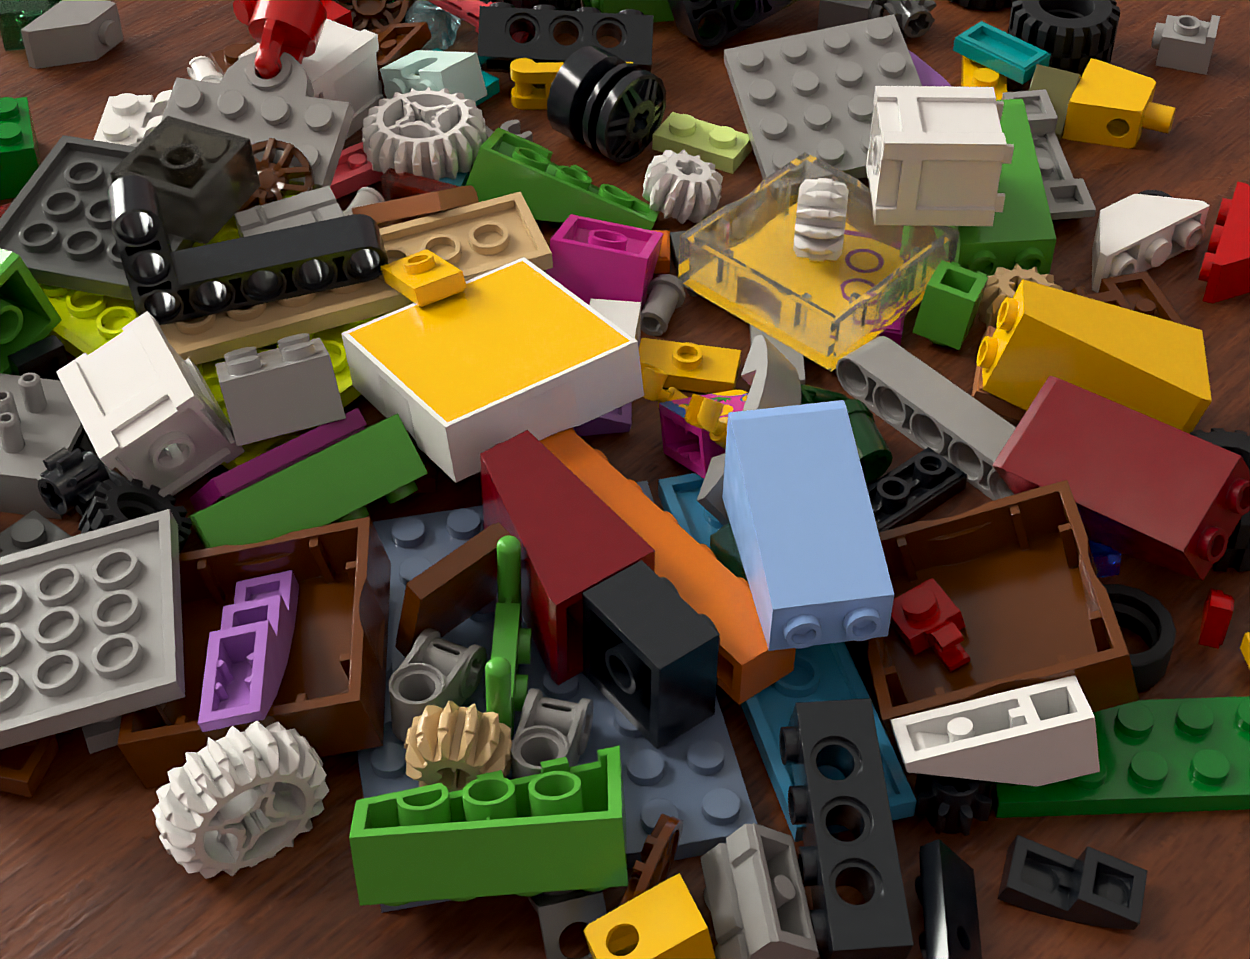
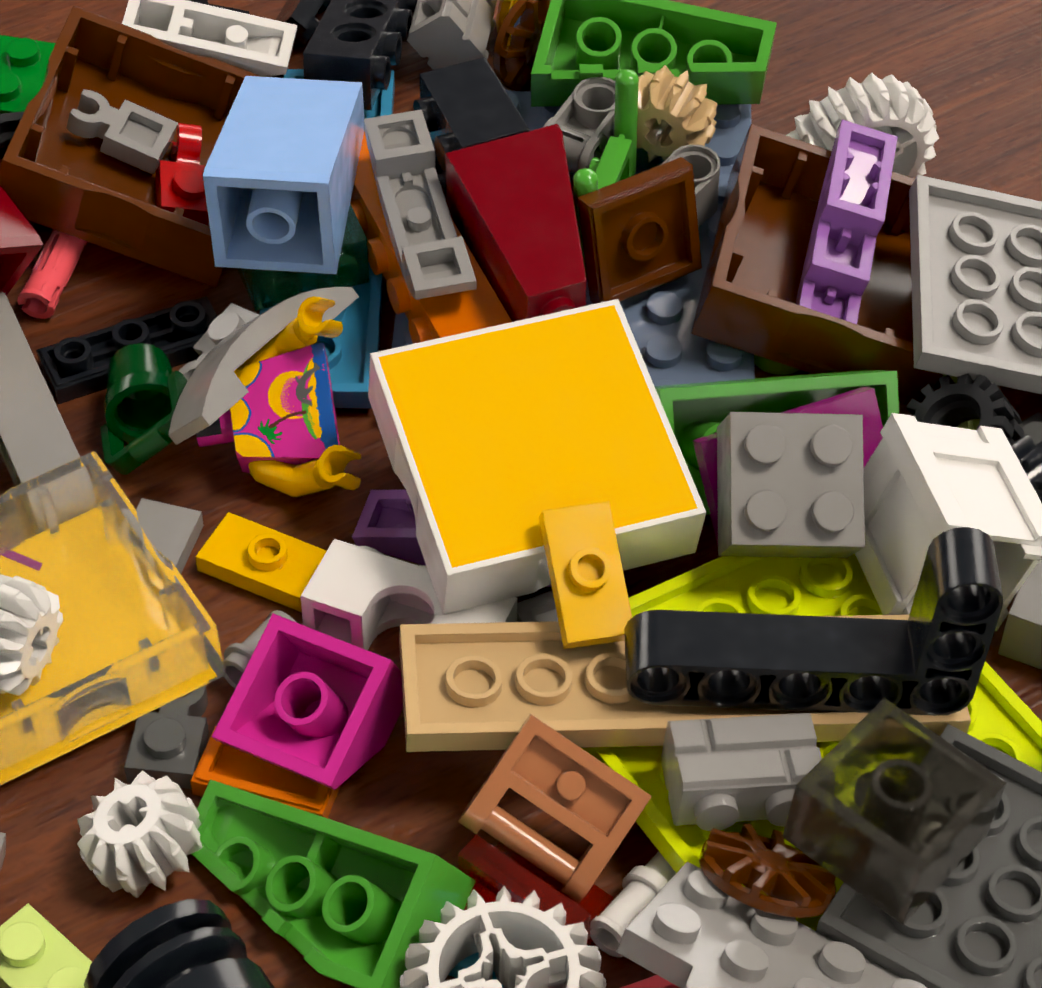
camera: 165 degrees left, 5 degrees up
(632, 489) = (415, 206): none -> light grey slope
(1002, 620) = (127, 133): none -> light grey plate

